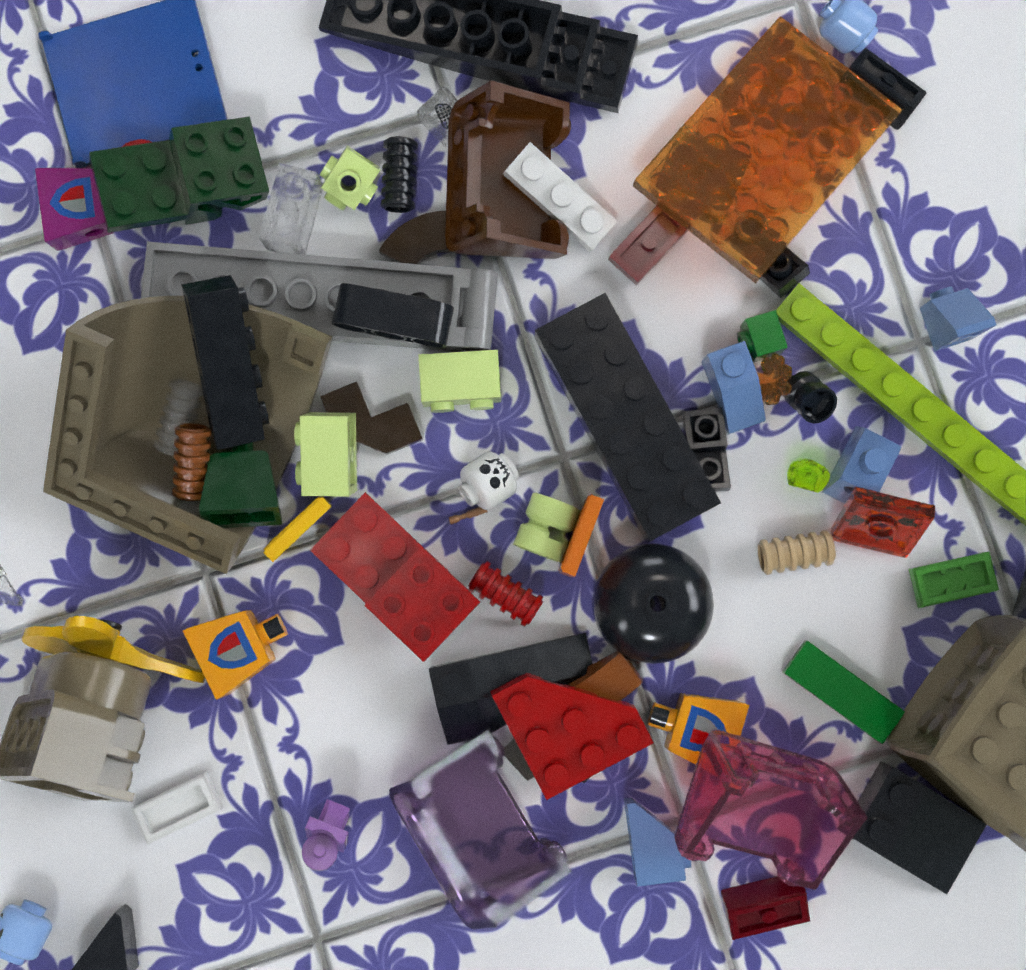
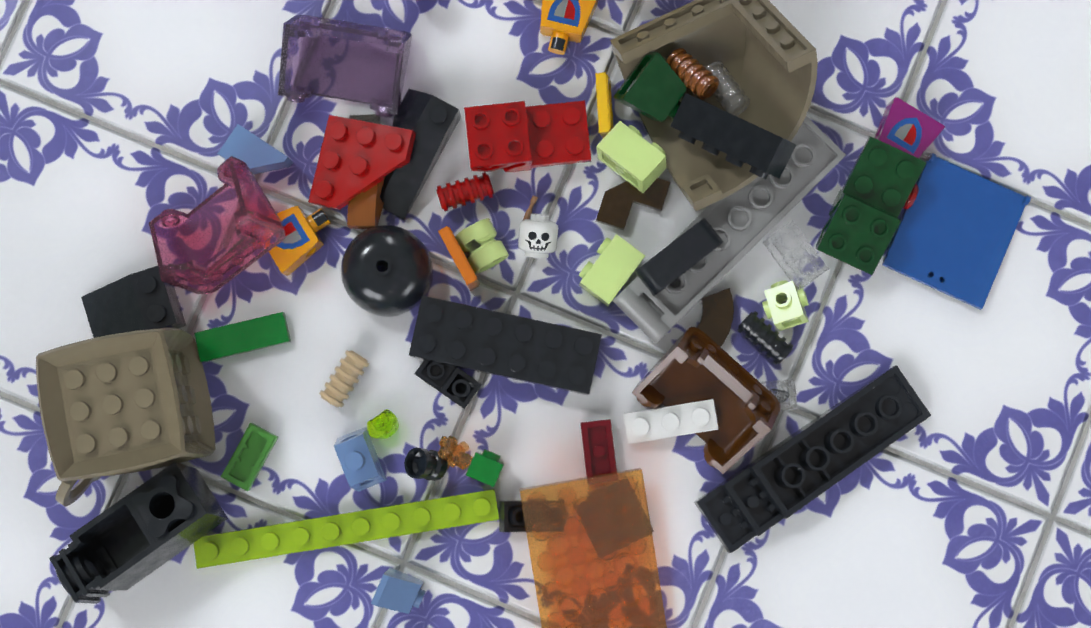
camera: 125 degrees right, 0 degrees up
(735, 386) = (469, 426): medium blue slope -> none
(764, 907) = (165, 187): dark red slope -> none
(882, 522) = (317, 440): clear red tile -> none

